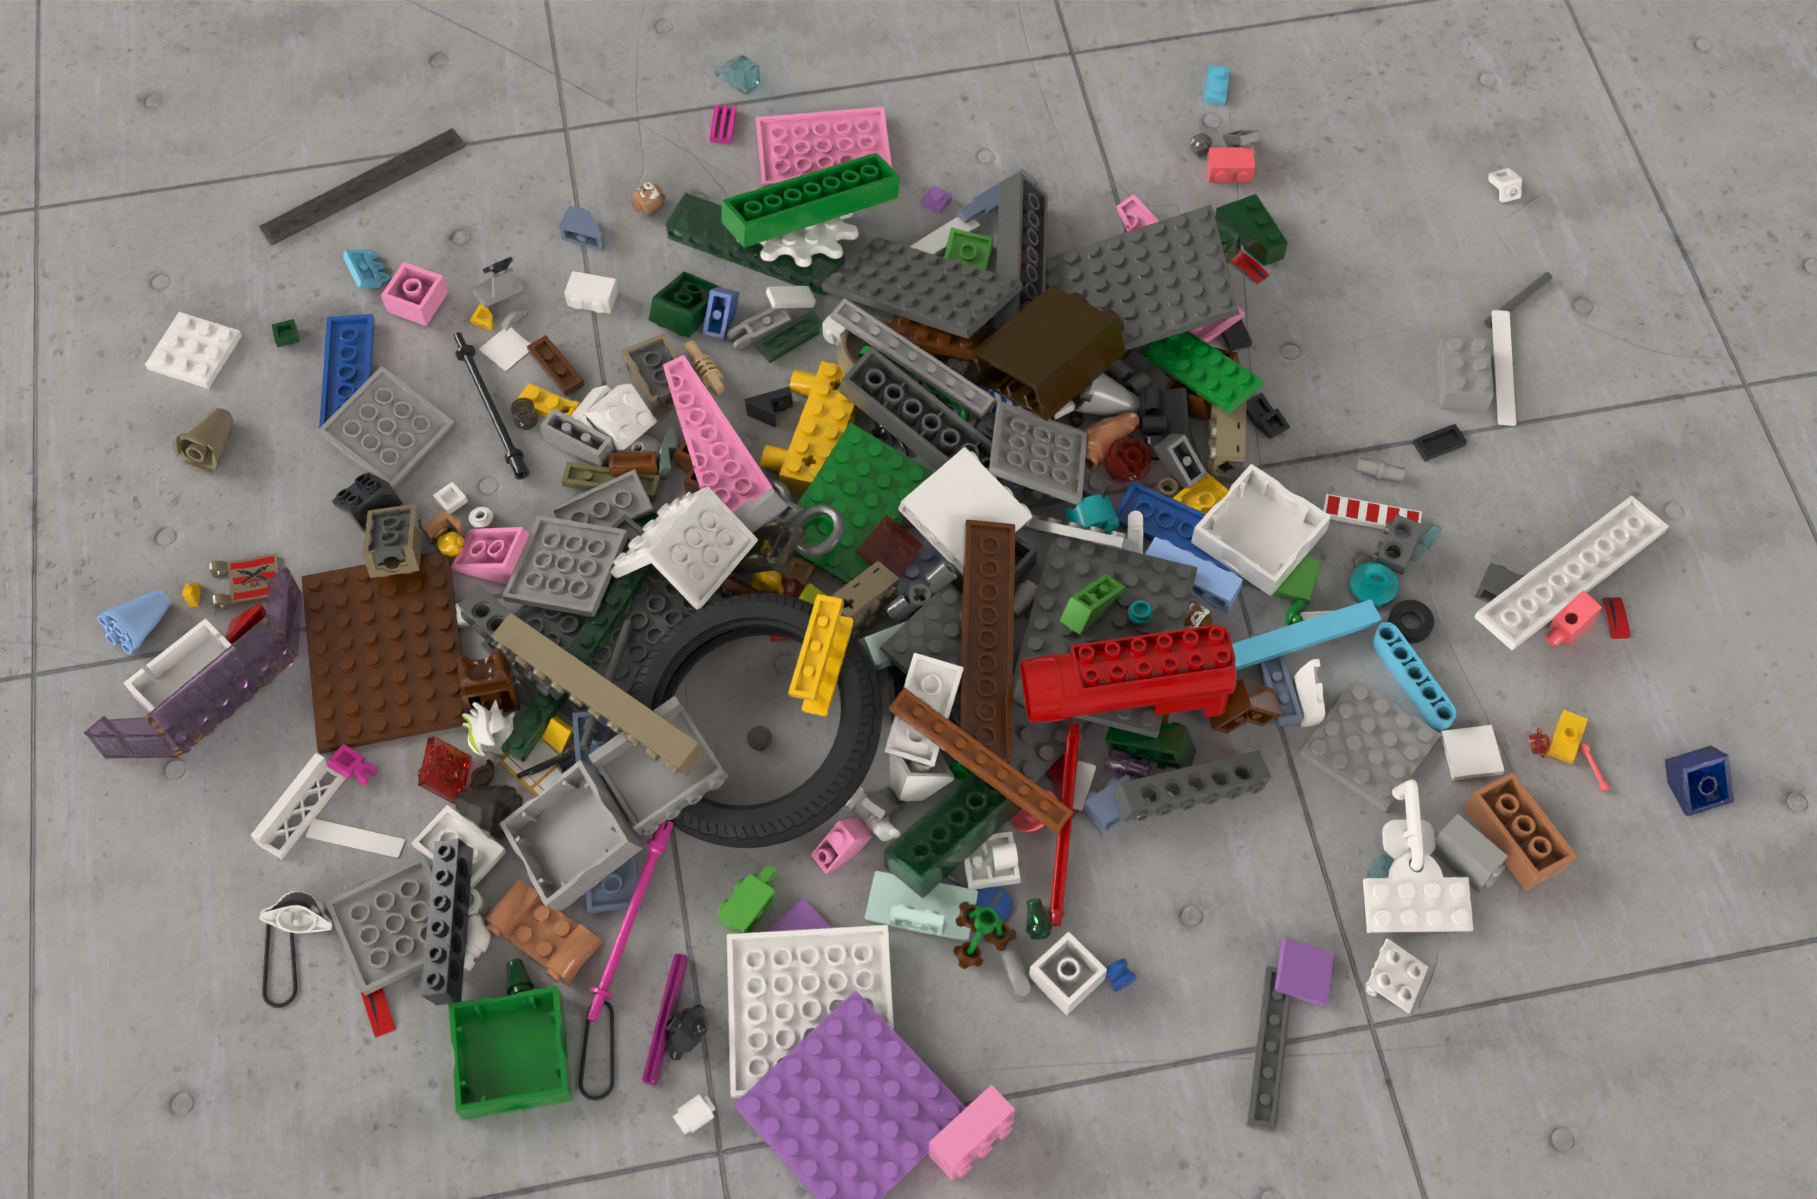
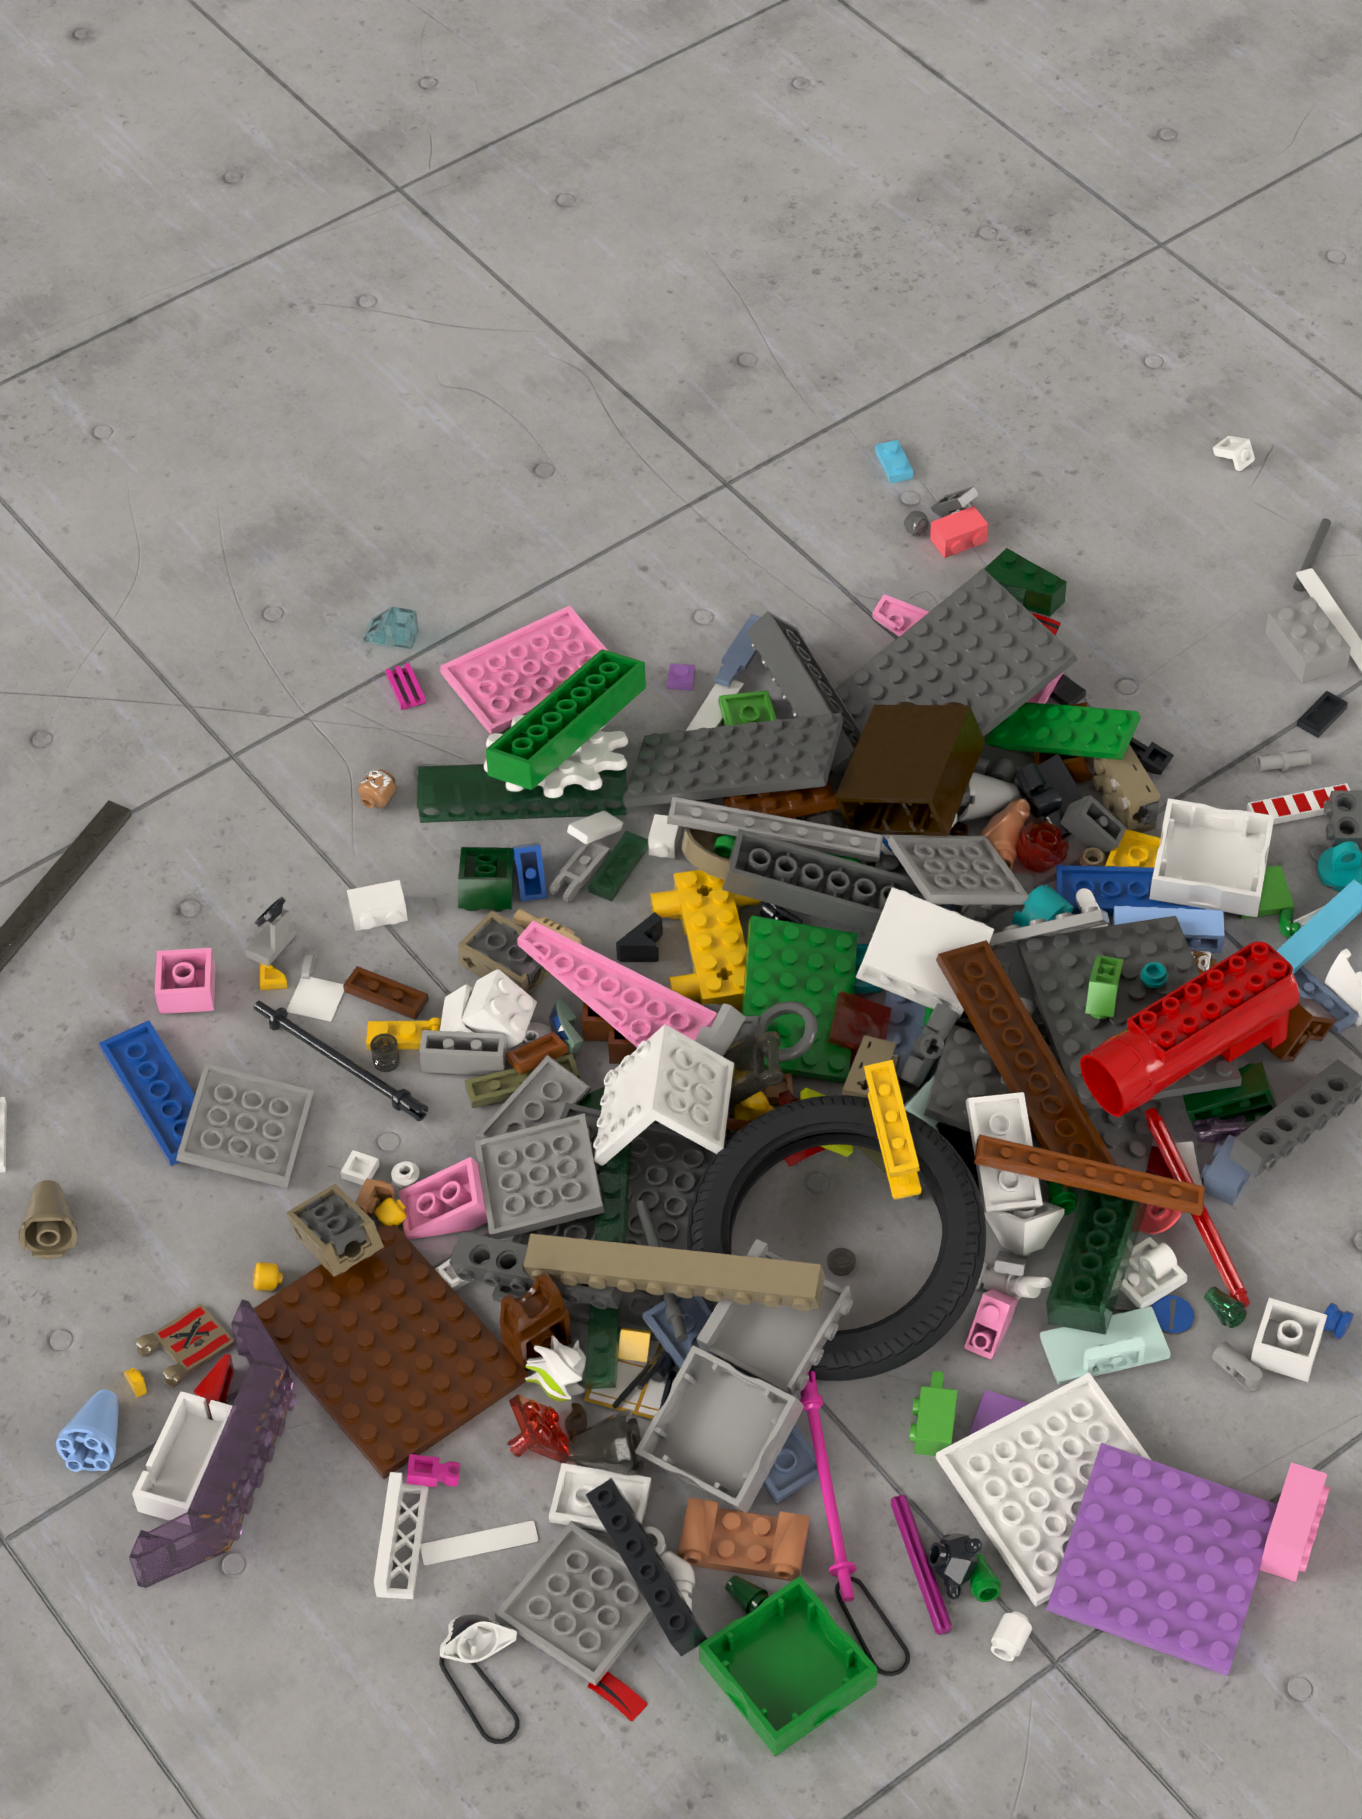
camera: 25 degrees left, 10 degrees down
(285, 333) = (60, 1078): dark green plate -> none
(332, 554) = (266, 1276): none -> yellow piece
(364, 495) = (266, 1205): black bracket -> none
(365, 269) = (107, 980): medium azure plate -> none
(580, 228) = (325, 846): sand blue slope -> none
(702, 1057) = (984, 1582): none -> green cone
(984, 922) = (1197, 1335): reddish brown plant -> none

